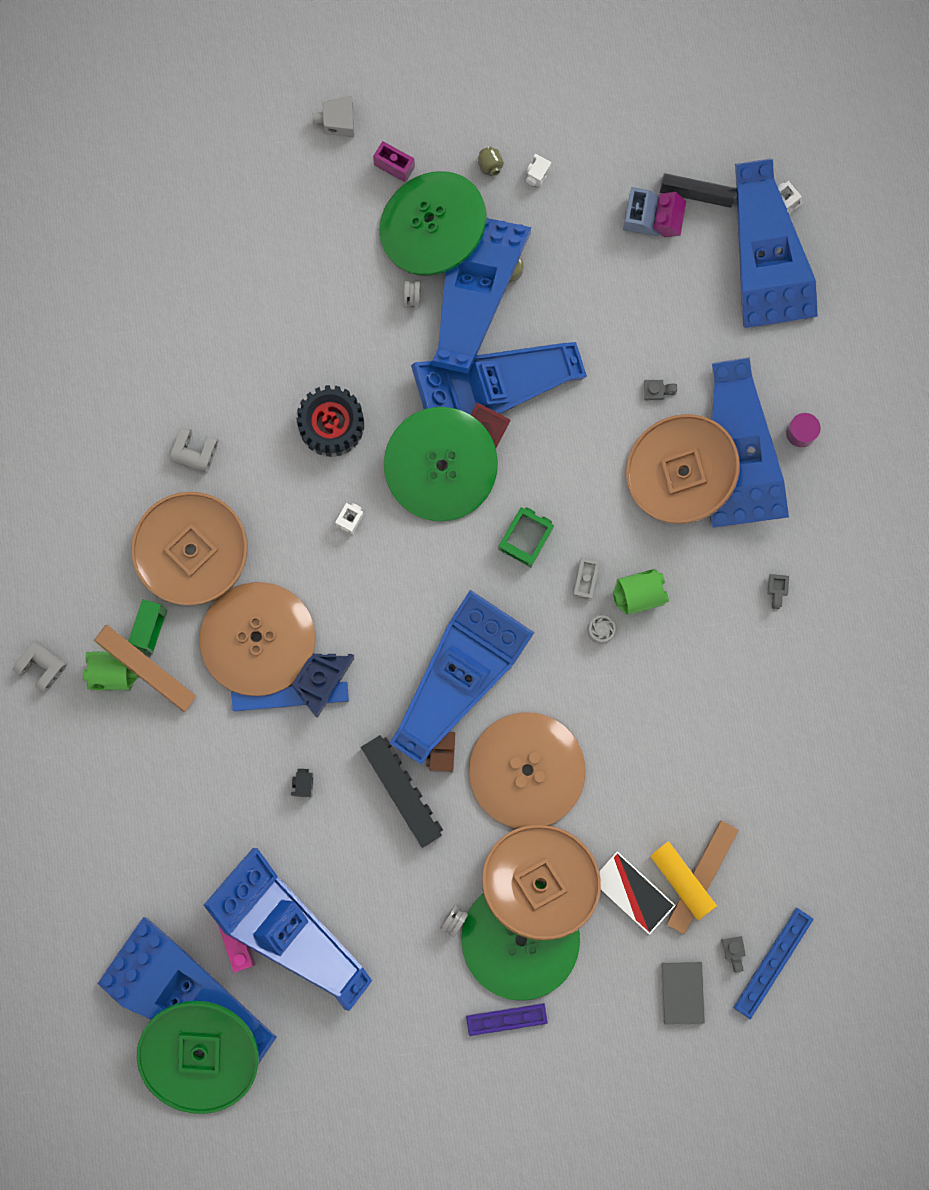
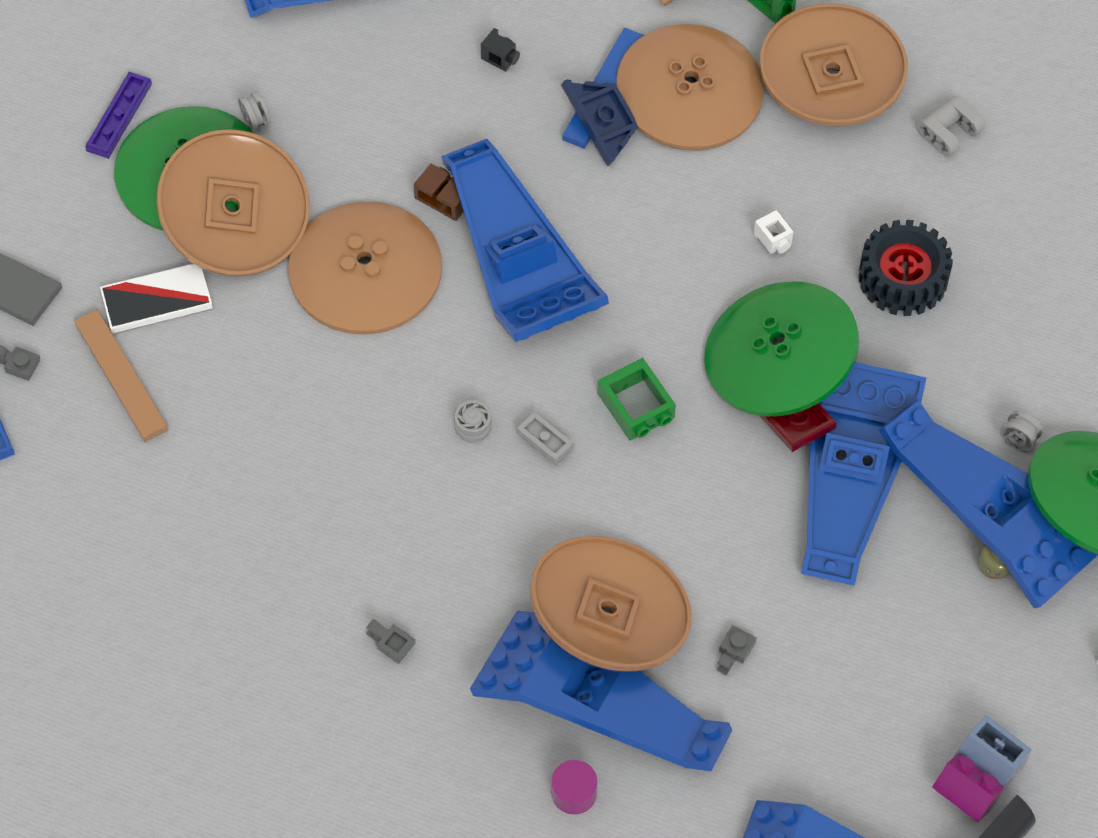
camera: 125 degrees right, 20 degrees down
(400, 790) = (424, 132): black brick -> none
(640, 592) = (488, 477): bright green cylinder -> none
(683, 881) = (130, 348): yellow brick -> none

